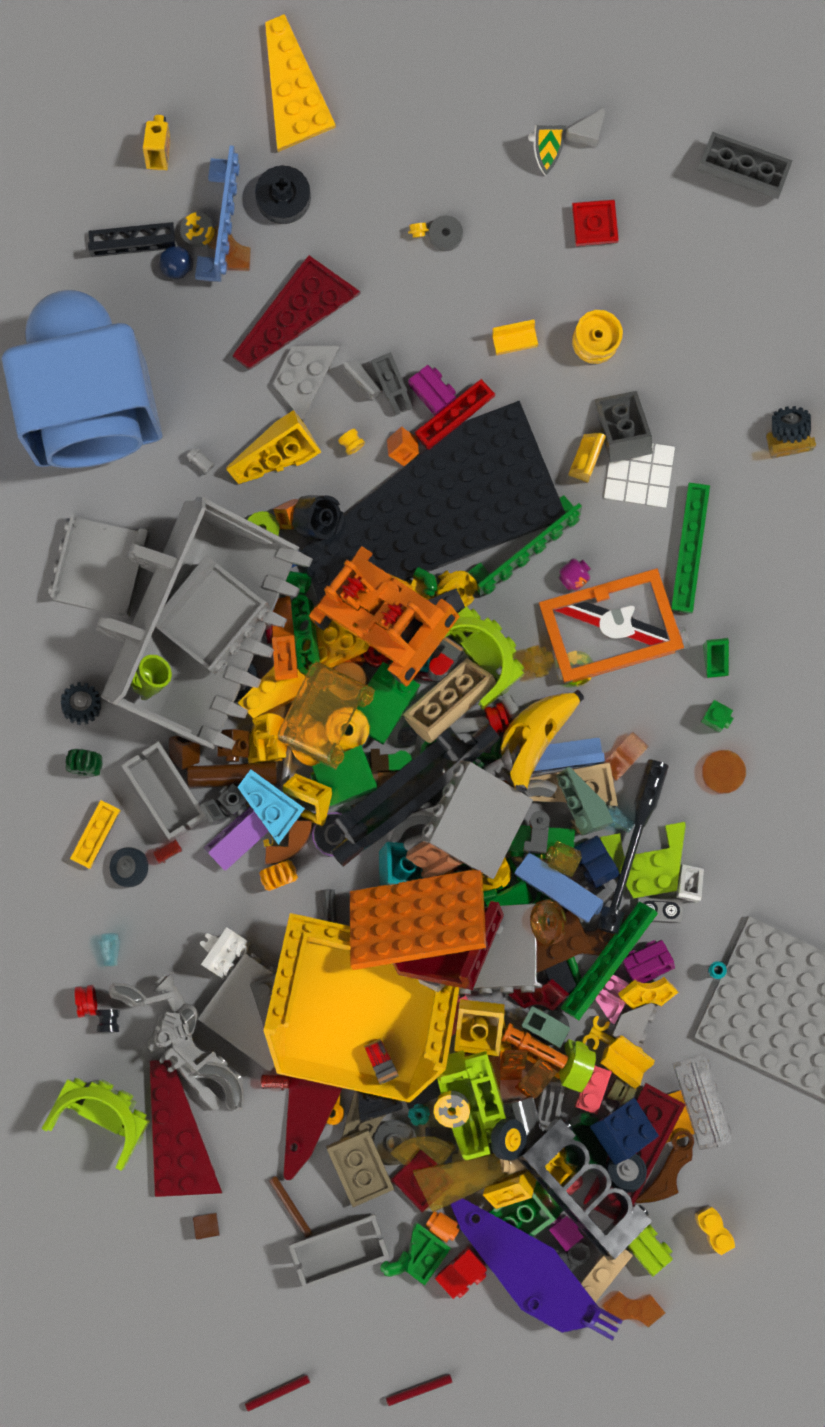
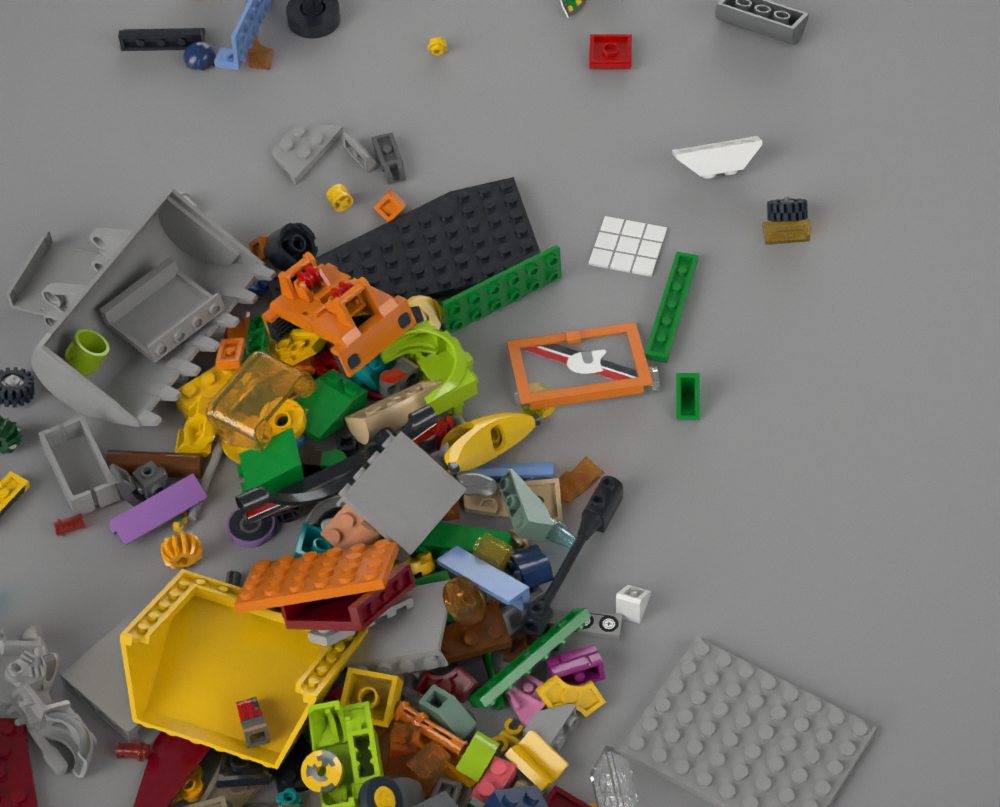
camera: 10 degrees right, 30 degrees down
(79, 385) = (77, 118): medium blue piece -> none
(128, 867) = (24, 532): black wheel -> none
(183, 752) = (109, 436): reddish brown panel -> none
(191, 223) = (222, 33): piece -> none
(224, 952) = (104, 611): white plate -> none
(240, 748) = (164, 435): reddish brown brick -> none
(270, 804) = (186, 479): medium azure wing -> none
(280, 446) = (264, 199): yellow wedge -> none
(298, 838) = (210, 523): dark orange brick -> none
(300, 581) = (260, 306): green cone -> none
(303, 302) = (312, 93): dark red wing -> none
(310, 792) = (212, 475): yellow tile -> none
(431, 389) = (428, 164): magenta brick -> none
(442, 242) = (464, 52): dark grey piece -> none
(454, 414) = (446, 183): red brick -> none
(514, 337) = (517, 128): yellow panel -> none
(537, 669) = (496, 387): clear yellow brick -> none
(539, 834) = (469, 527): dark grey leg -> none
(574, 574) = (547, 318): magenta head -> none
(587, 456) = (576, 225): yellow tile -> none
(595, 349) = (598, 131): yellow wheel -> none
(624, 426) = (616, 206): dark grey slope -> none
(654, 870) = (593, 586): lime wing -> none
(717, 716) = (681, 448): green brick -> none
(718, 358) = (719, 157): none -> white wedge
(723, 772) = (684, 502): clear orange tile -> none
(723, 970) = (652, 679): teal pin -> none

